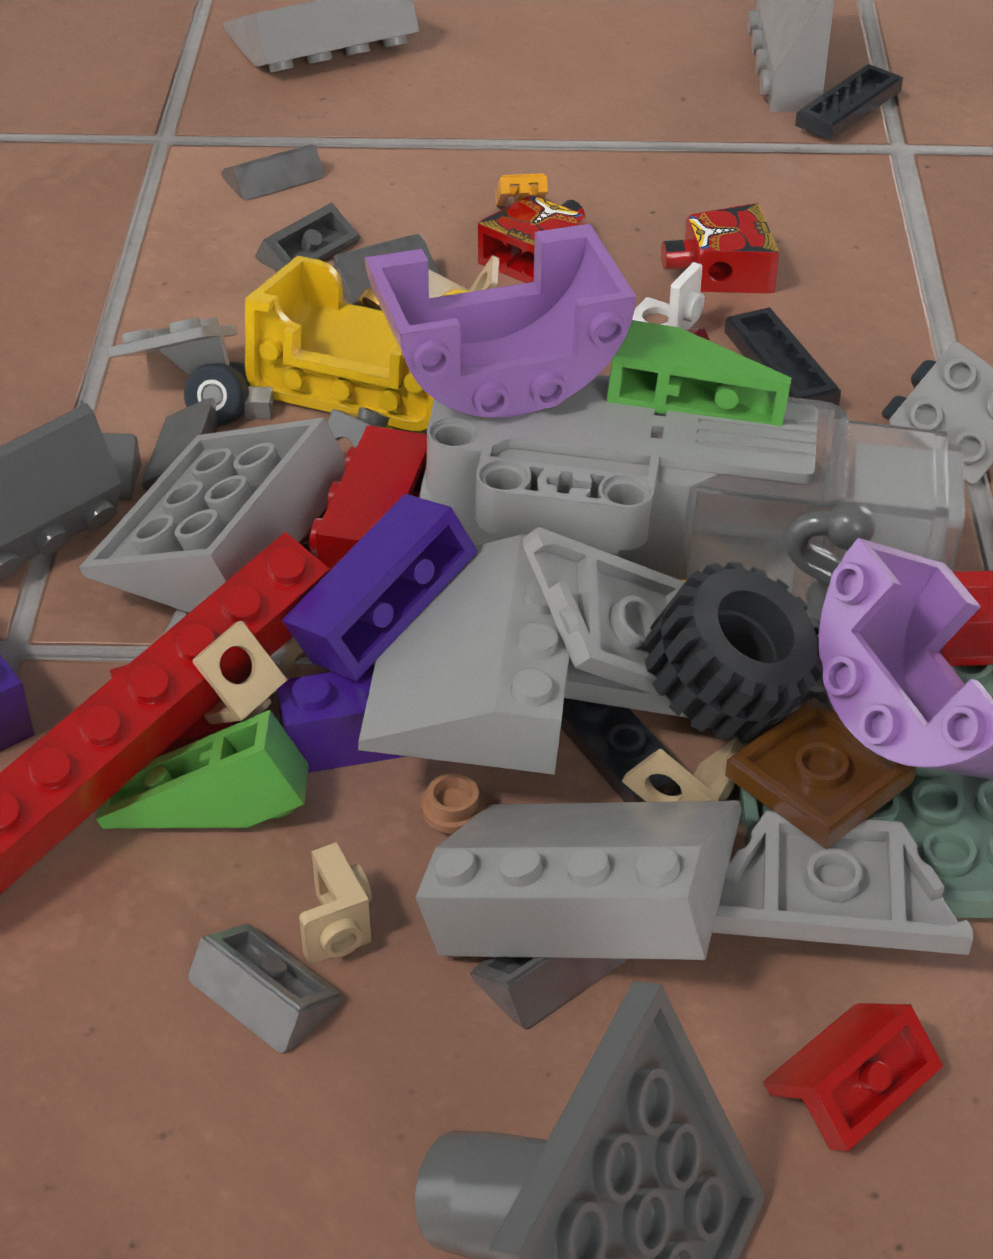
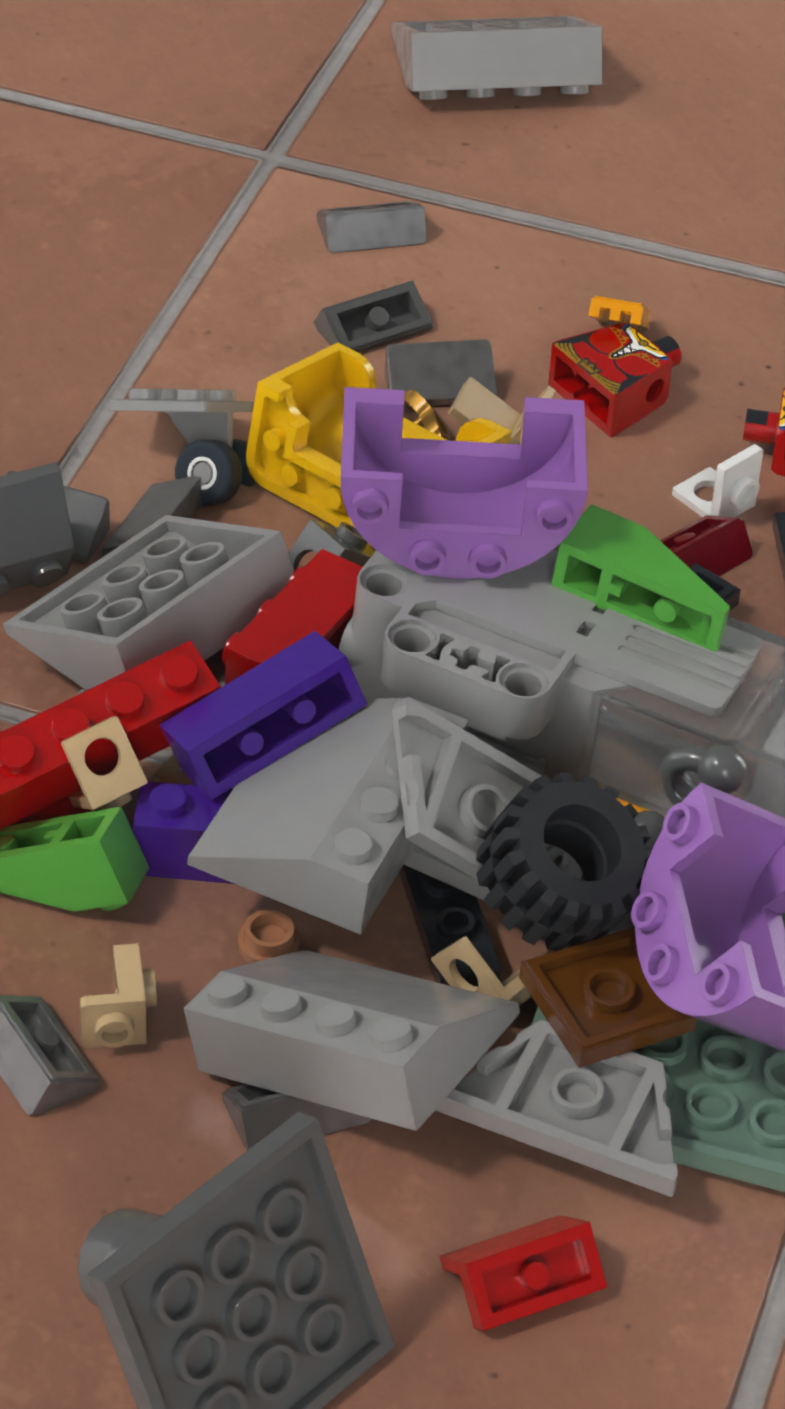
camera: 15 degrees right, 0 degrees up
(259, 403) = (250, 491): light grey piece -> none

